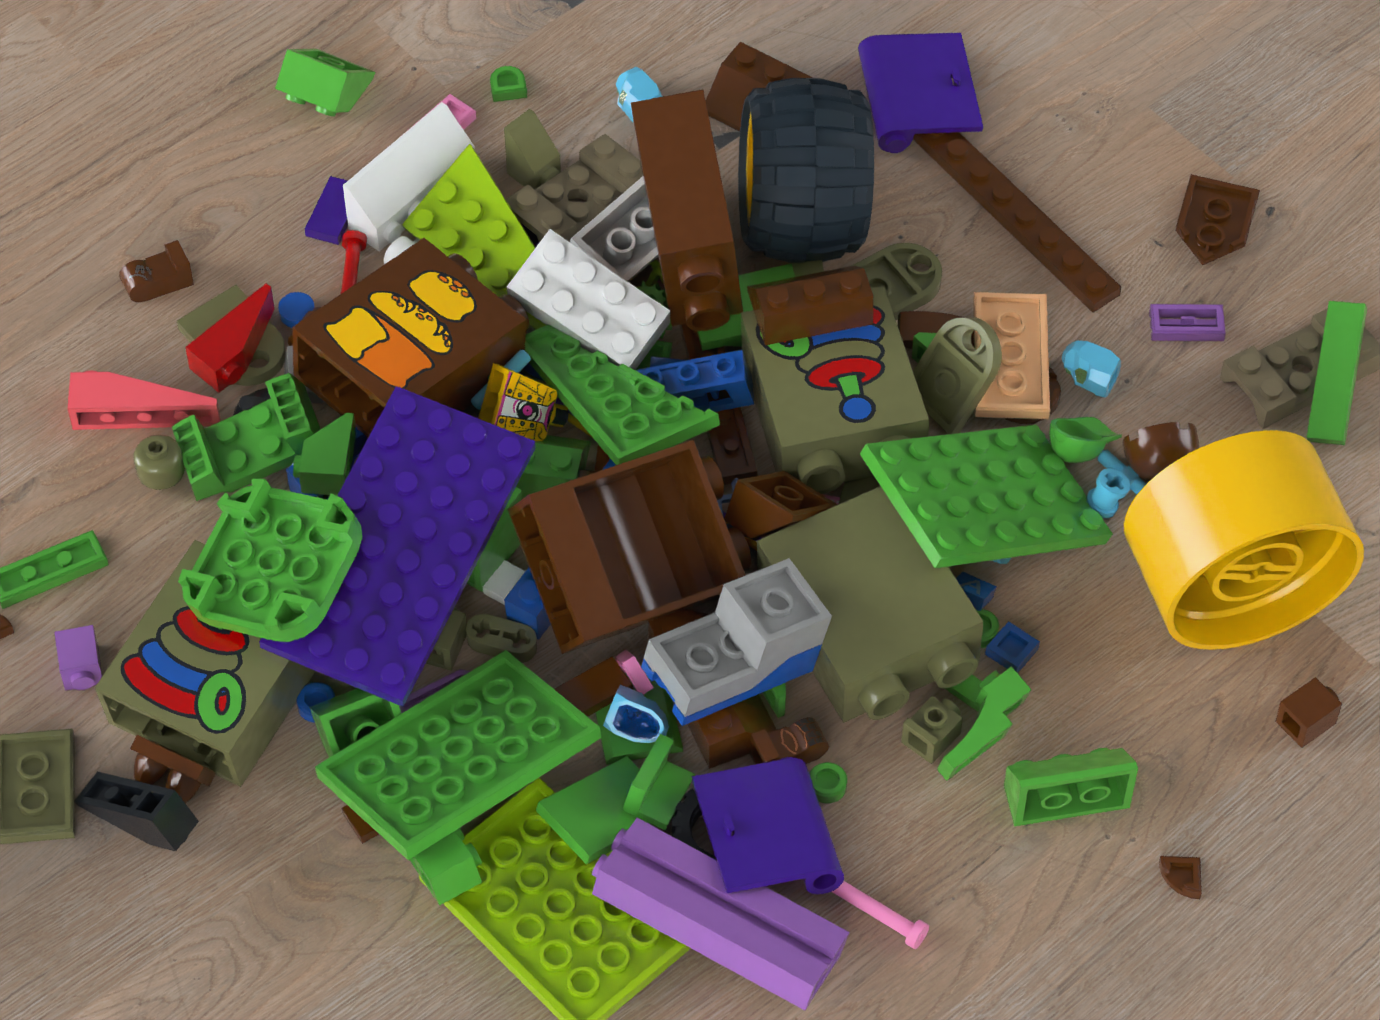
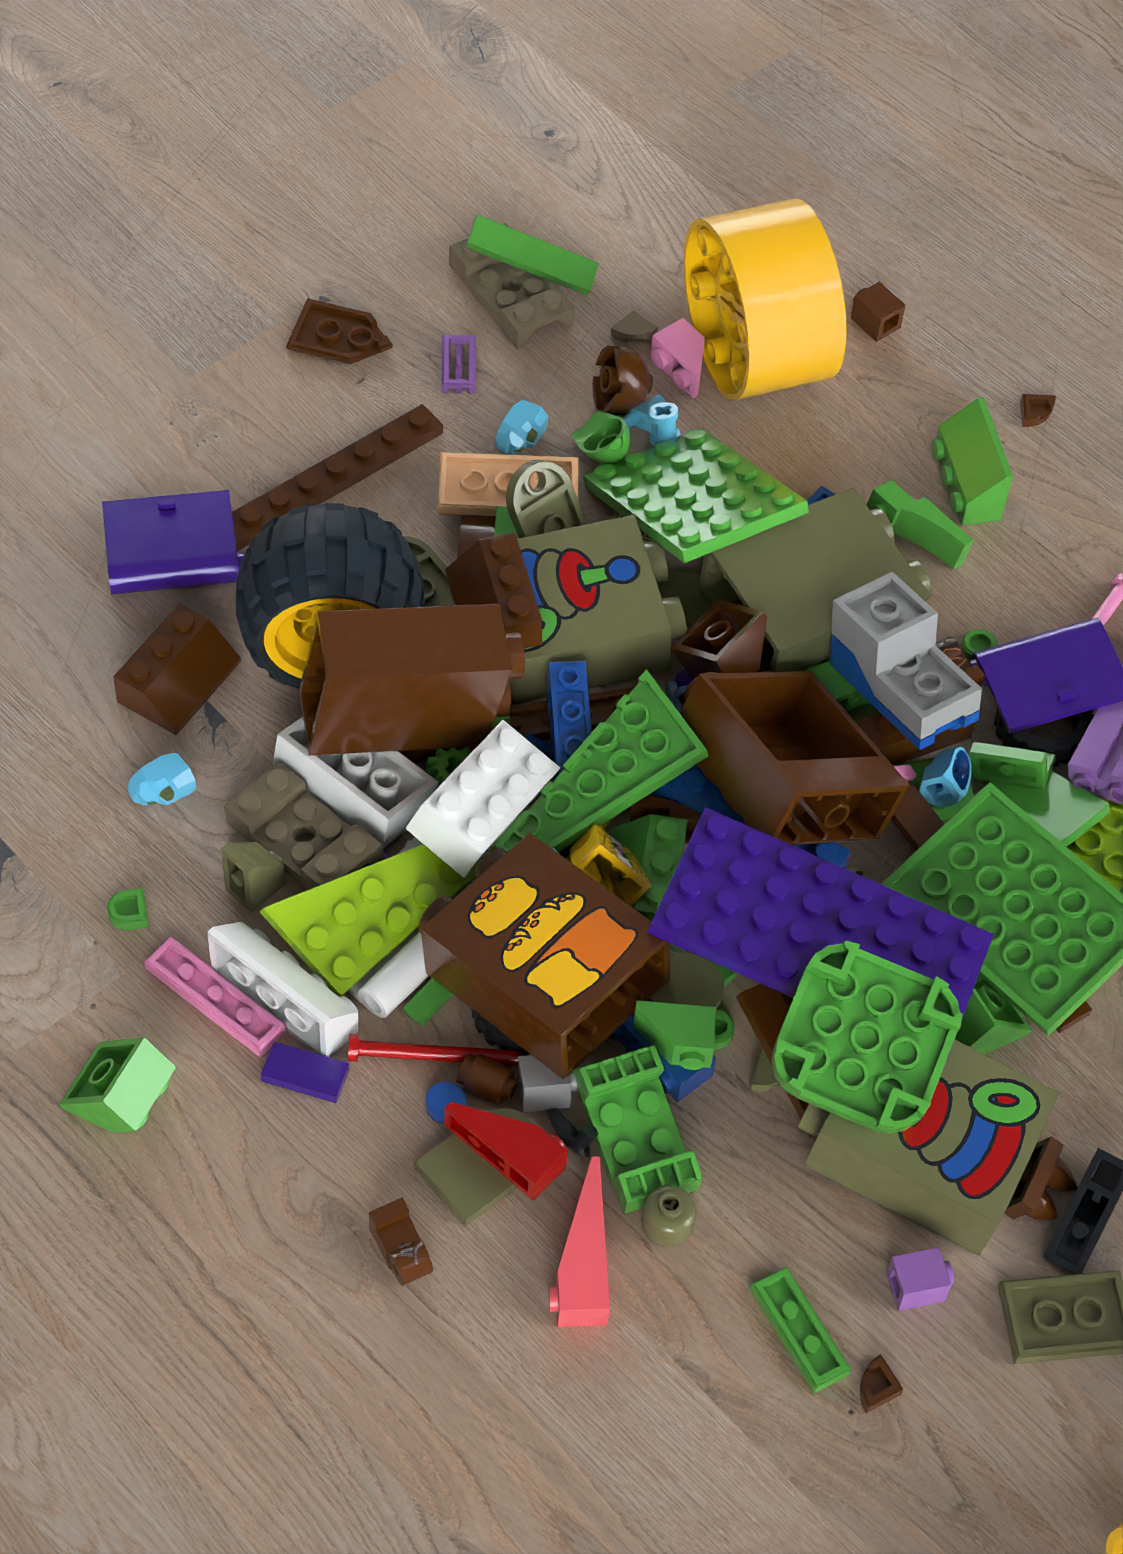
camera: 95 degrees left, 0 degrees up
(932, 728) = (931, 558): olive brick -> none

